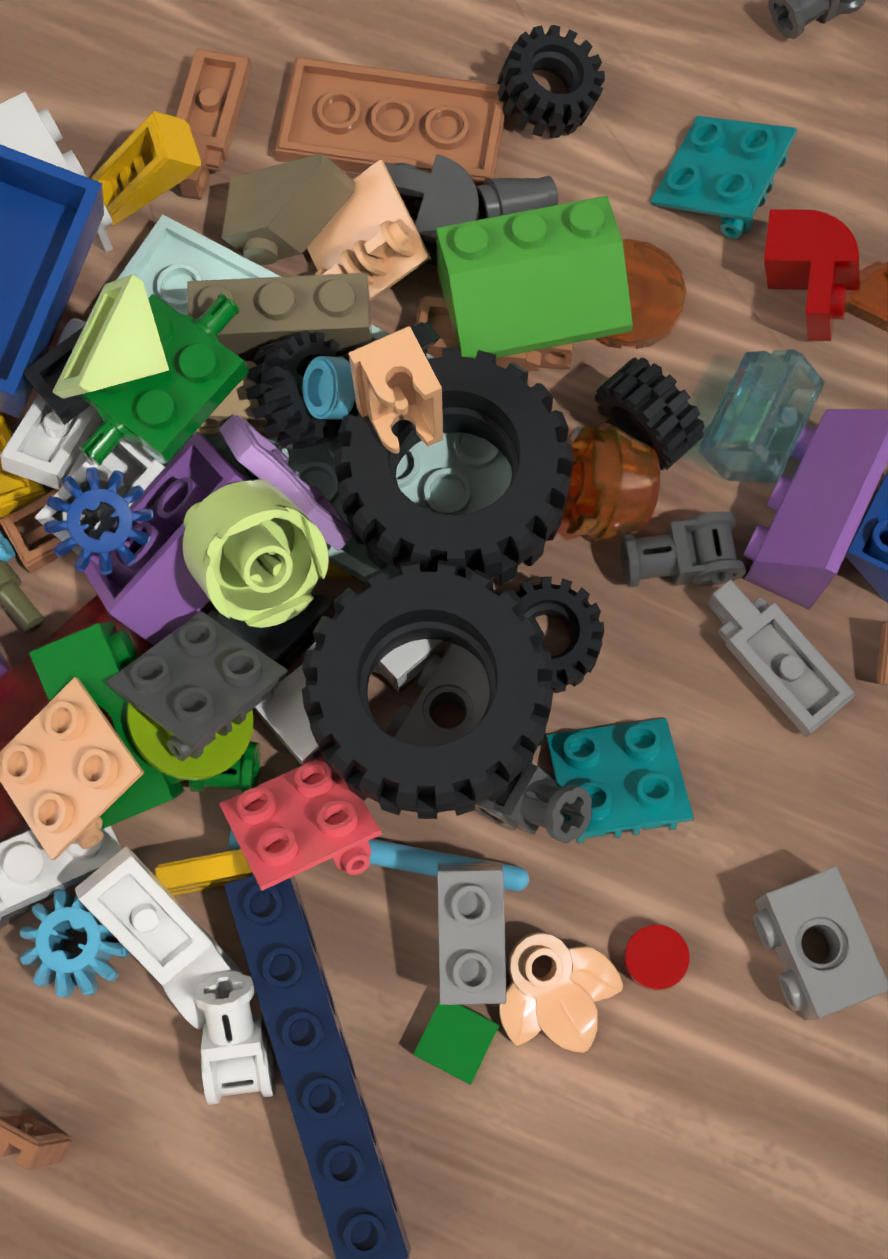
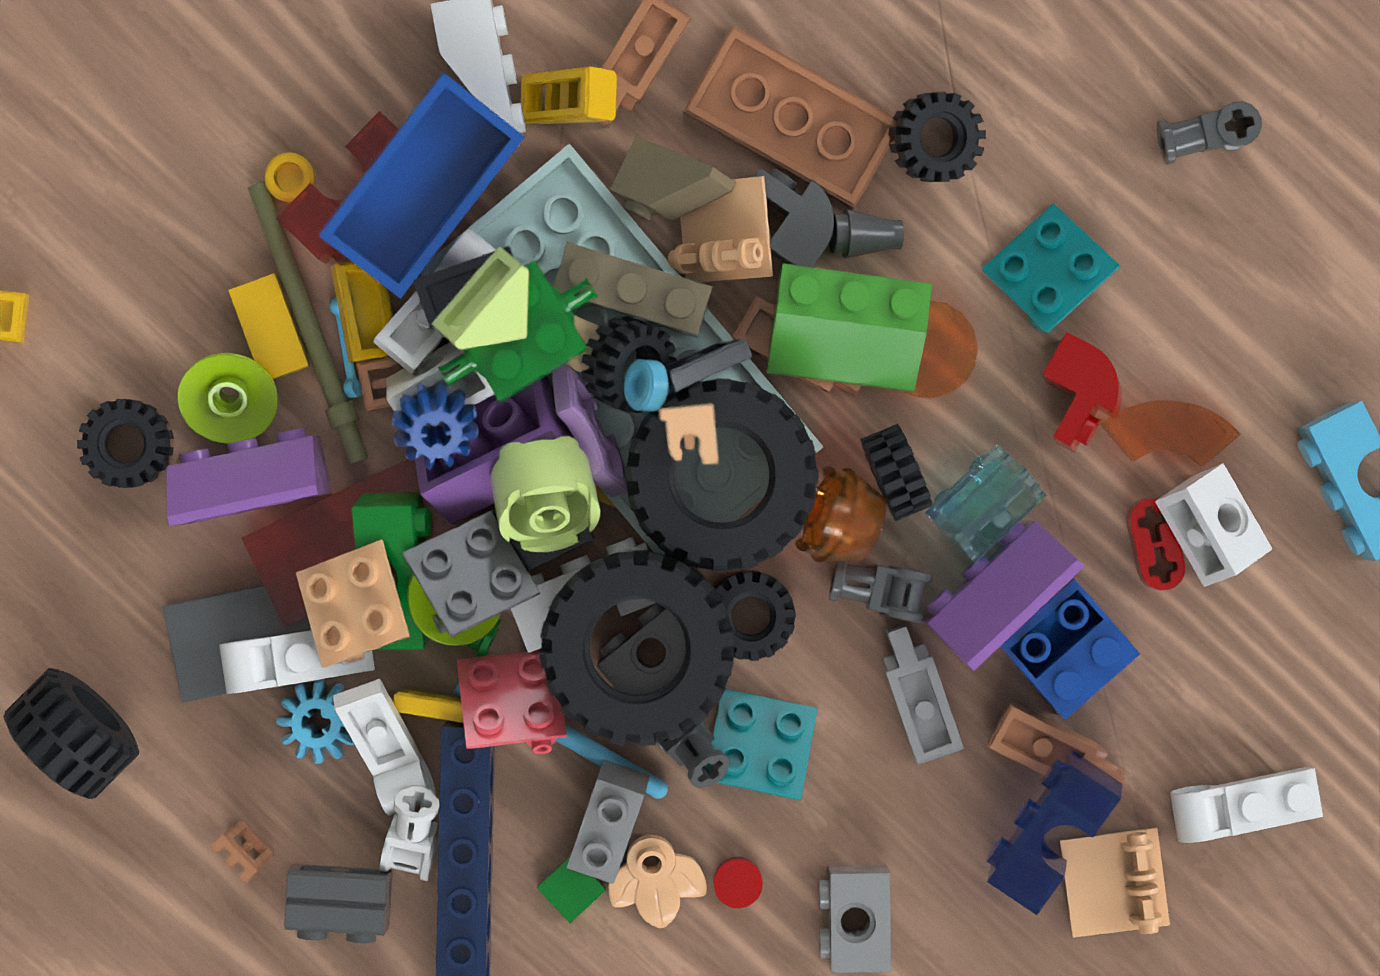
camera: 15 degrees right, 15 degrees up
(166, 1165) = (338, 902): none -> dark grey brick

